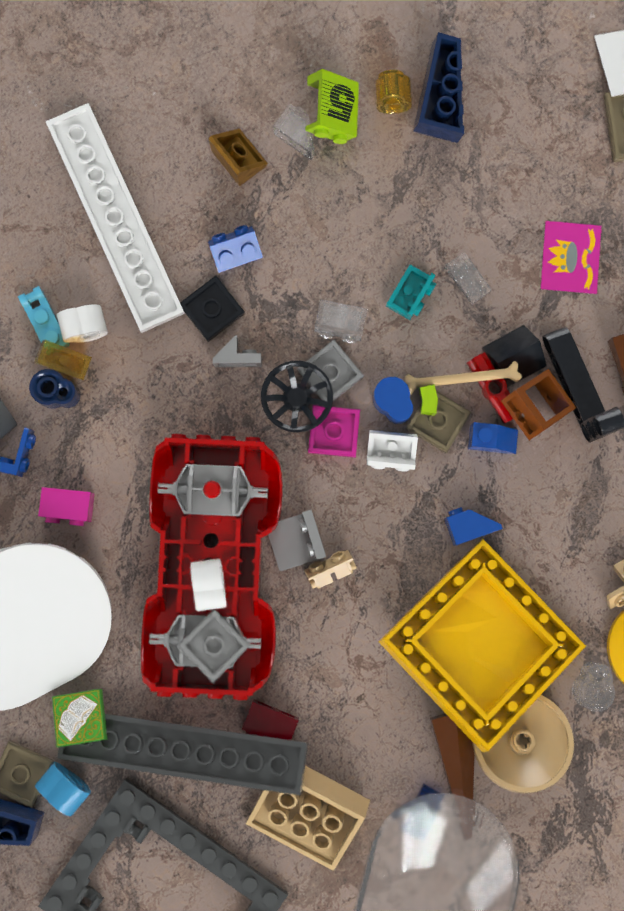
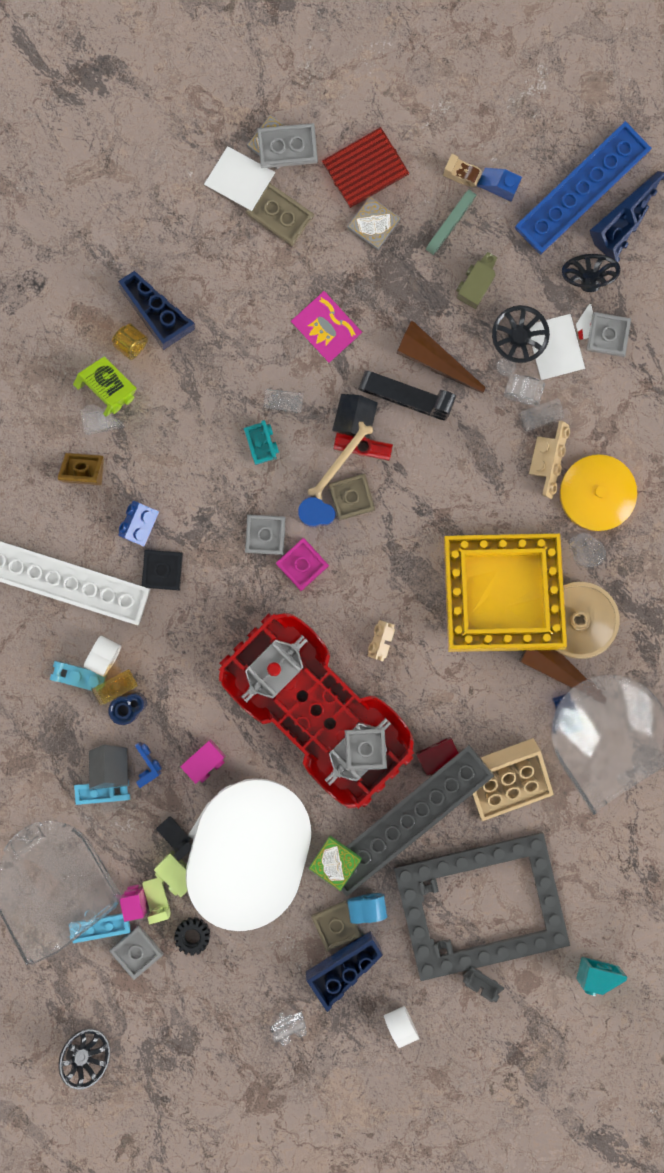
camera: 45 degrees left, 5 degrees up
(208, 584) = (328, 721): white piece -> none
(229, 356) = (202, 586): light grey slope -> none
(296, 541) = (347, 645): light grey bracket -> none
(297, 396) = (262, 568): black wheel -> none
(340, 321) = (240, 500): clear brick -> none
(392, 450) = (345, 541): white bracket -> none
(428, 400) = (335, 492): lime piece -> none
(468, 525) = (429, 537): blue slope -> none
(492, 438) = (392, 475): blue slope -> none
(533, 422) = (386, 442): dark orange window -> none

